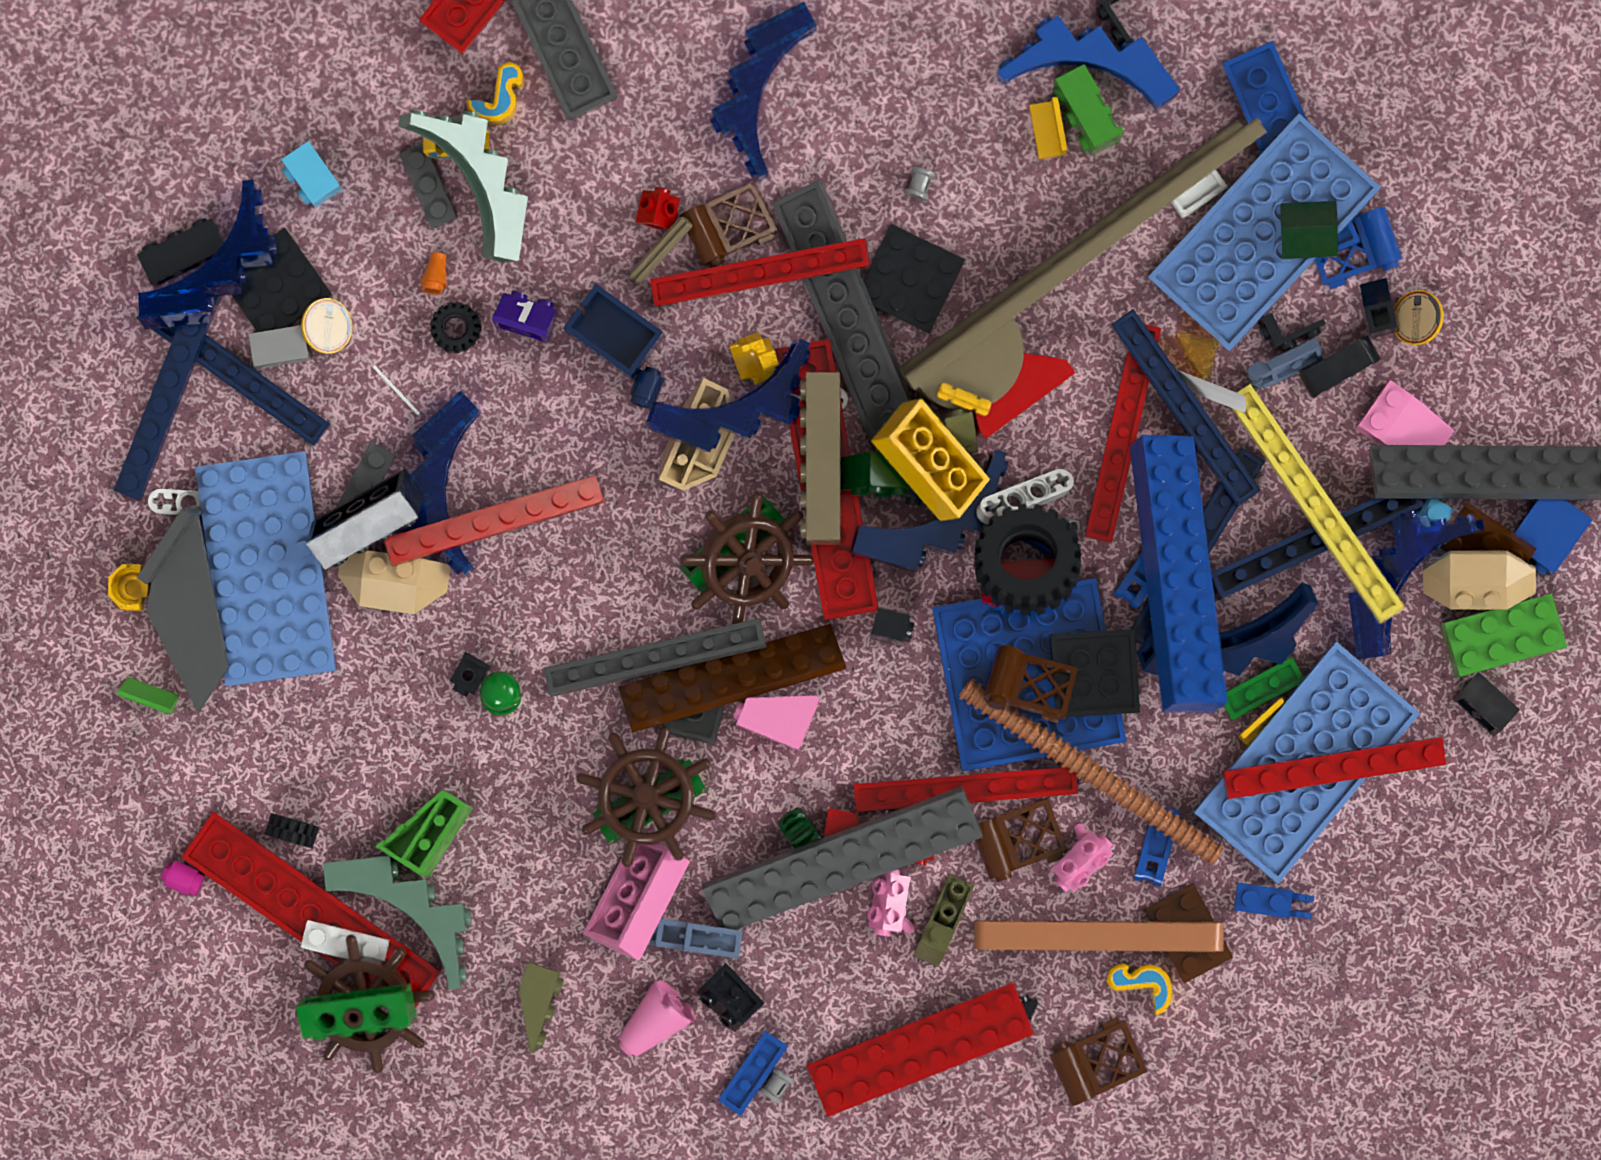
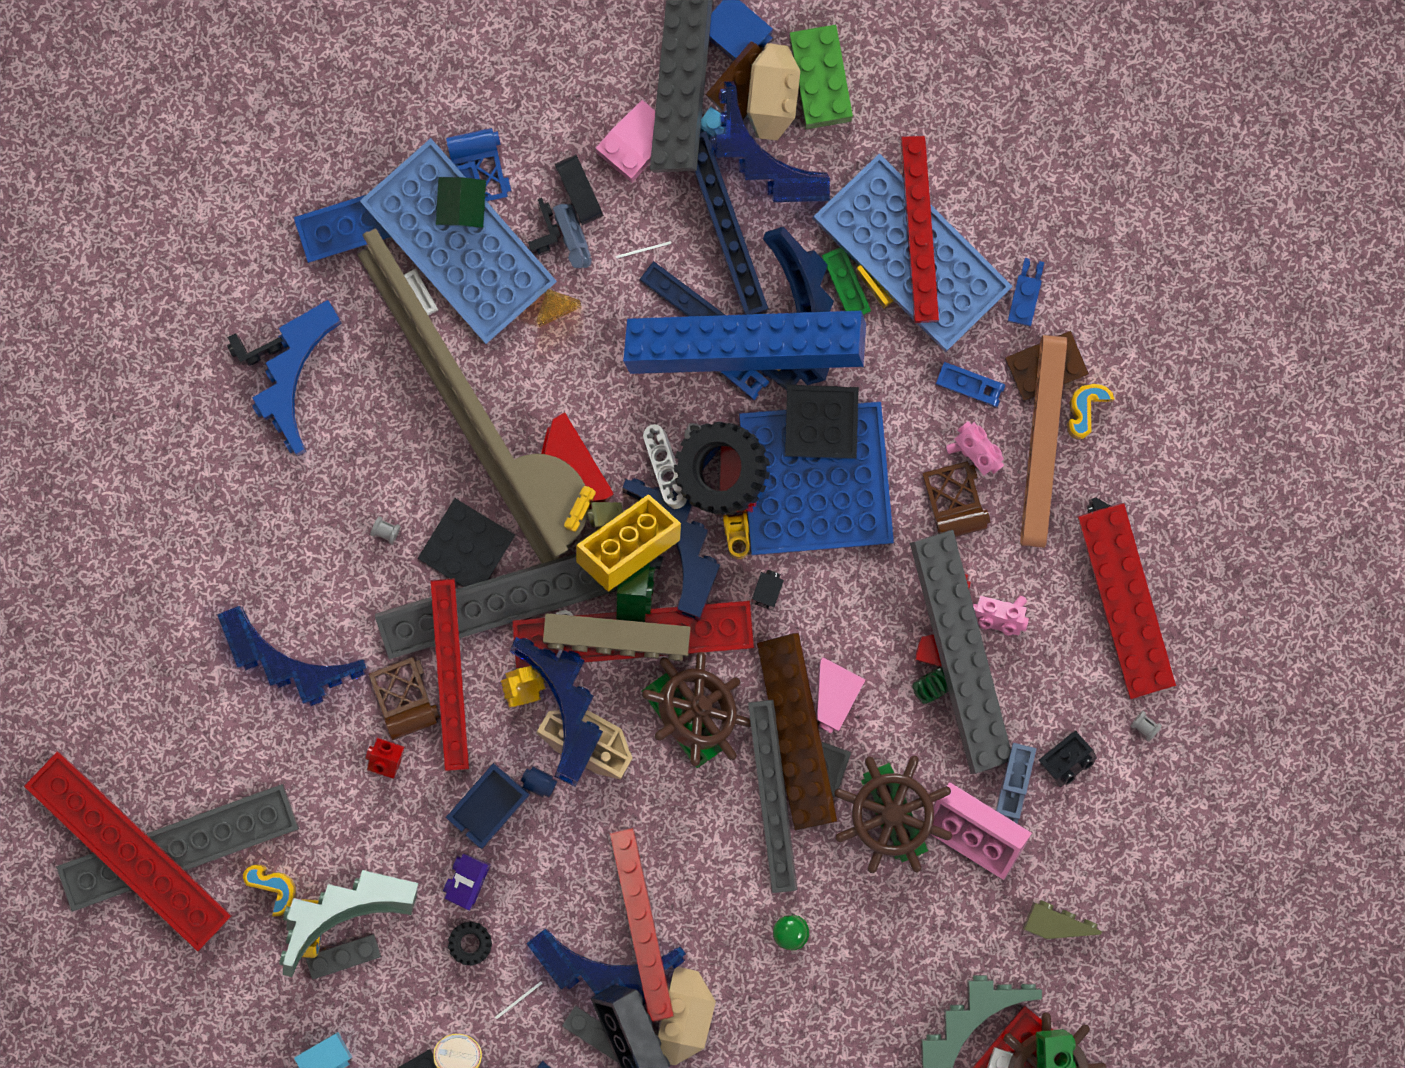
camera: 90 degrees left, 0 degrees up
(427, 834) = (907, 1006): bright green wedge -> none
(434, 276) = (422, 957): orange cone -> none
(479, 669) = (768, 949): black brick -> none
(655, 1019) = (1082, 824): bright pink cone -> none
(660, 249) = (420, 758): dark tan axle -> none
(753, 1073) = (1133, 745): blue plate -> none
(943, 920) = (1018, 571): olive slope -> none
(955, 588) = (737, 533): none -> yellow piece
(976, 786) = (908, 530): red plate -> none
(1007, 678) = (821, 496): reddish brown piece -> none
(1048, 129) = (349, 415): yellow panel -> none
(1076, 1072) = (1155, 471): reddish brown piece -> none
(1087, 111) = (337, 381): bright green wedge -> none
(1096, 775) = (904, 433): nougat piece -> none
(1117, 453) = (616, 378): red plate -> none
(1185, 407) = (601, 323): dark blue tile -> none
(1214, 392) = (591, 297): white sticker -> none
(1318, 507) = (695, 221): light yellow plate -> none
(1379, 308) = (531, 151): black slope -> none
(1418, 317) = (543, 120): piece -> none
(1486, 704) = (876, 97): black hinge -> none

